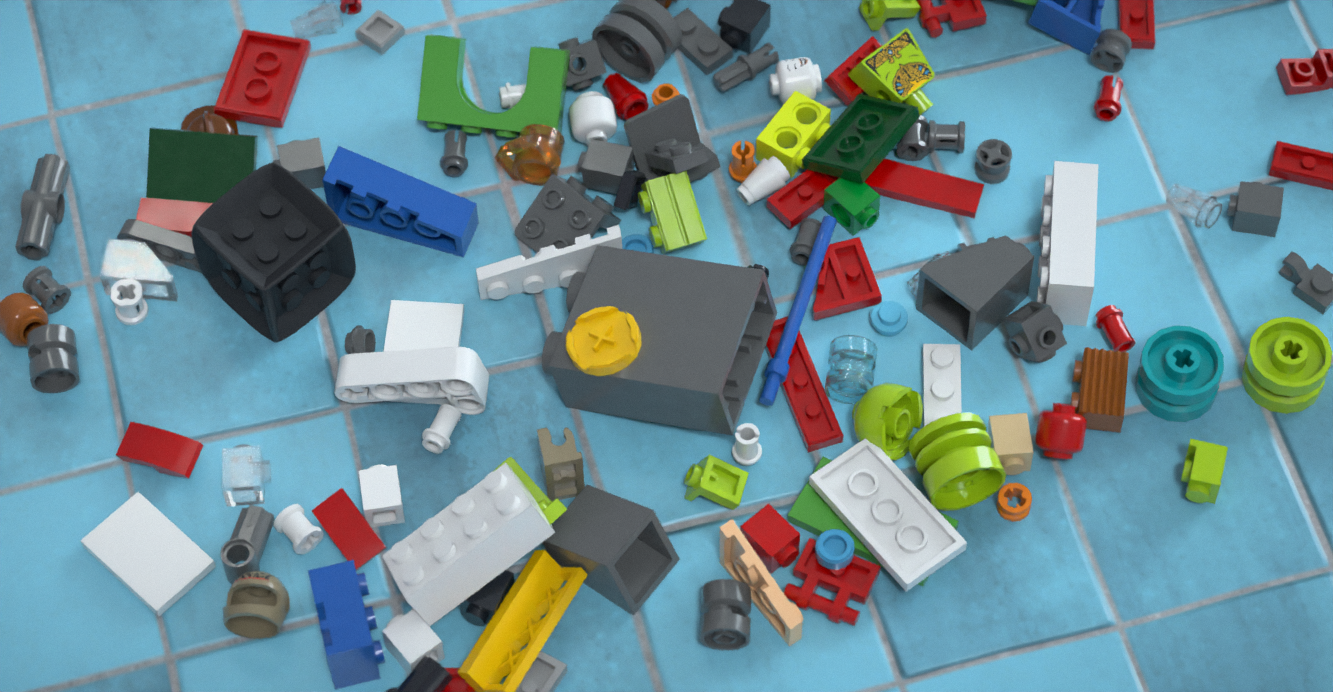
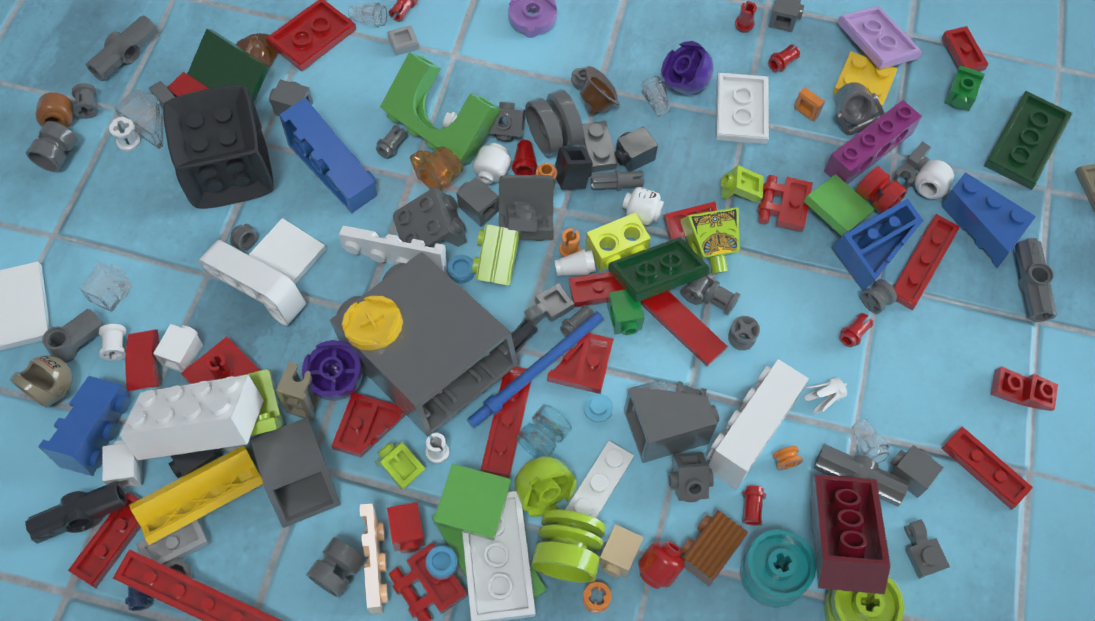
camera: 25 degrees right, 5 degrees up
(160, 449) = (70, 241): red slope -> none
(437, 436) = (250, 323): white pin -> none
(437, 487) = (219, 363): none -> red tile
(588, 415) = (333, 370): none -> dark purple cylinder
(629, 188) = (479, 220): black tile -> none
(649, 463) = (365, 424): none -> red wing
(691, 75) = (573, 167): none -> black brick
(765, 237) = (550, 303): none -> plate
(829, 470) = (472, 502): none -> bright green tile
(1120, 264) = (787, 458): none -> orange bush
(1124, 171) = (834, 389): none -> white piece
(1205, 241) = (837, 463): none -> dark grey piece
(1231, 295) = (849, 535): none -> dark red brick

